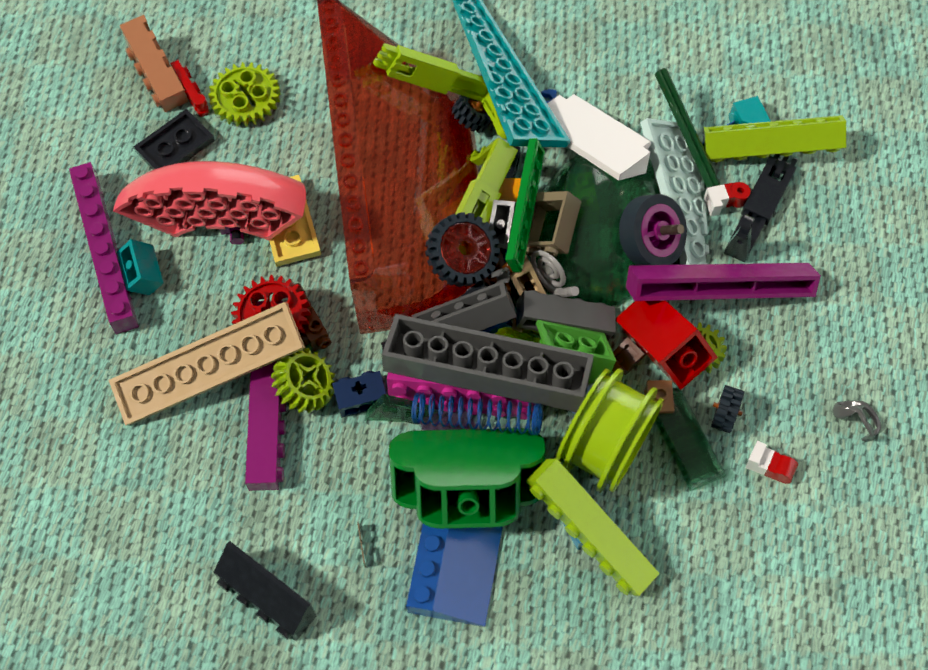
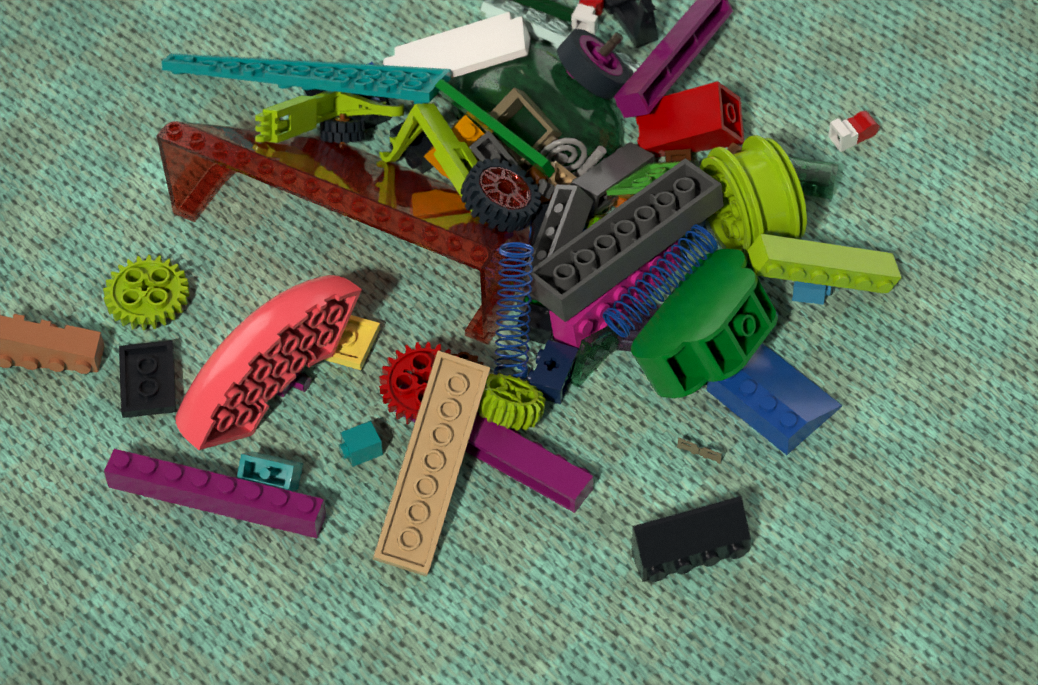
camera: 55 degrees left, 10 degrees down
(191, 89) = (112, 333): red plate -> none
(206, 308) = (360, 444): none -> teal brick
(362, 358) = (502, 250): none -> blue piece
(727, 409) = (786, 124): black wheel -> none
(846, 408) = (848, 51): dark grey piece -> none

